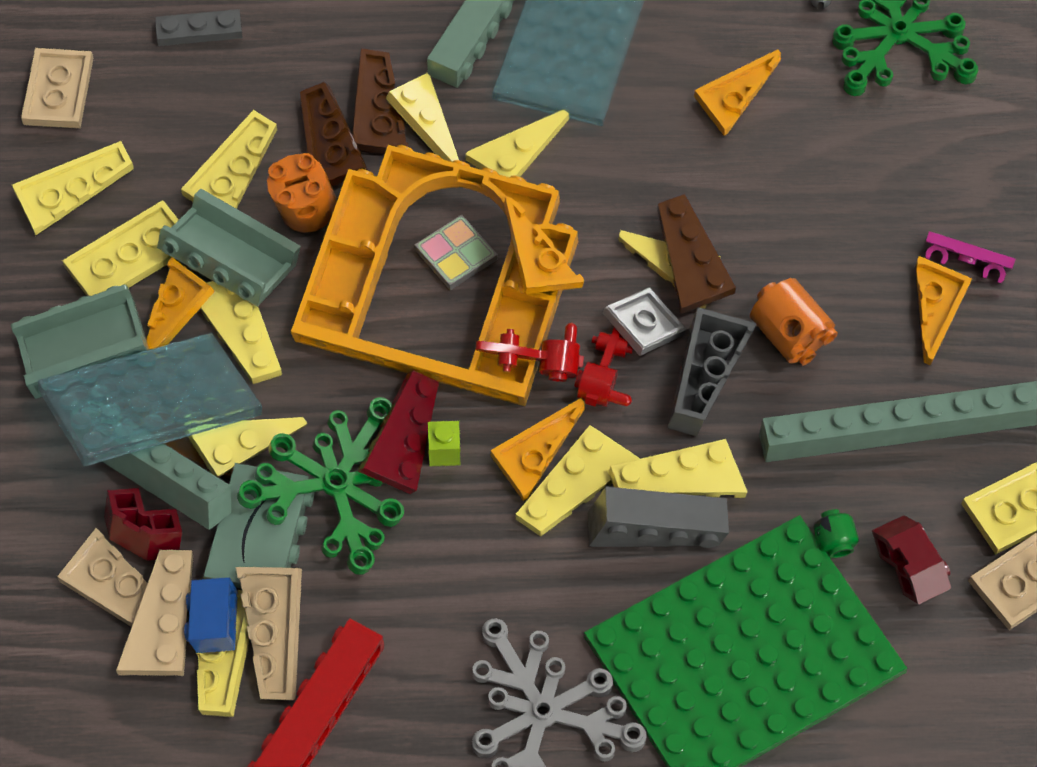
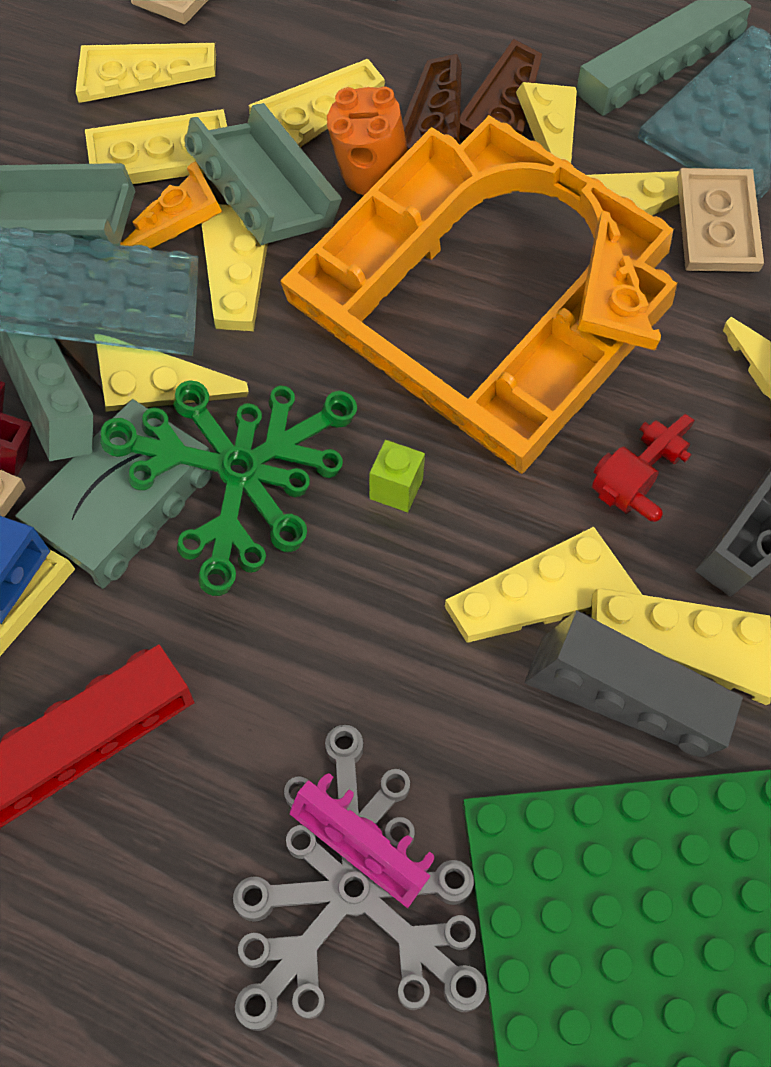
camera: 25 degrees right, 0 degrees up
(273, 621) = (66, 602): tan wing -> none
(401, 443) = (338, 458): dark red wing -> none
(456, 252) = (519, 273): tile -> none
(531, 451) = (500, 531): light orange wing -> none
(536, 679) = (360, 841): none -> dark pink plate
(557, 357) = (586, 426): red piece -> none
(583, 154) = (719, 220): none -> tan plate
(644, 321) = (718, 429): light grey tile -> none

